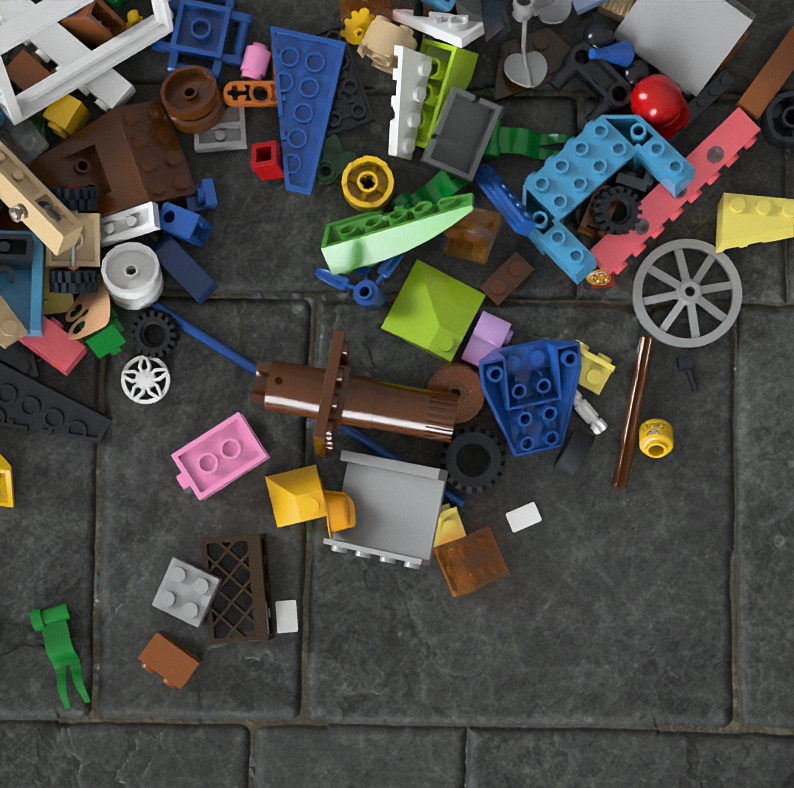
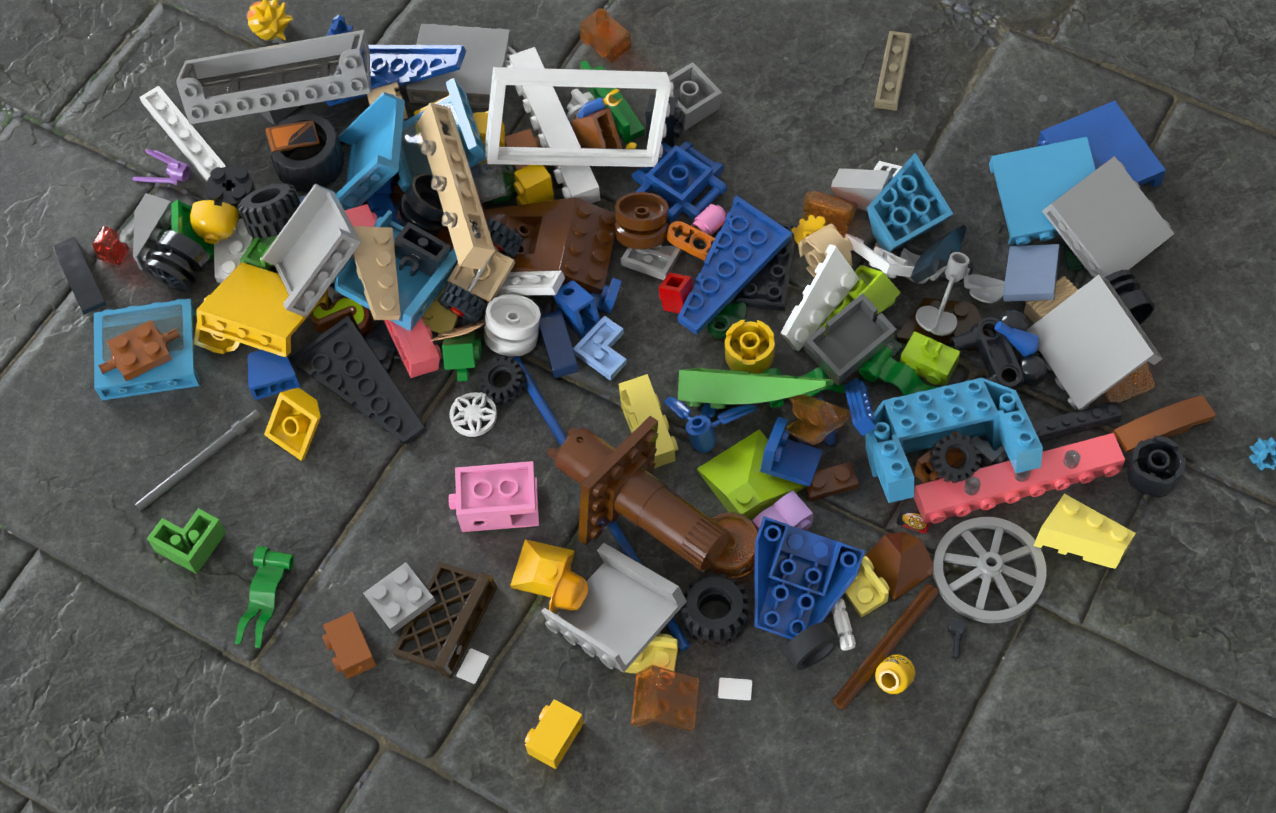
camera: 35 degrees right, 25 degrees down
(221, 254) = (597, 351): none -> light blue plate
(314, 309) = (639, 403): none -> light yellow wedge
(395, 643) = (553, 733): none -> yellow brick
(463, 280) = (789, 458): none -> blue bracket
(537, 110) = (930, 359): none -> lime brick
(607, 327) = (901, 562): none -> reddish brown slope
(660, 104) = (1041, 395): red tile -> none

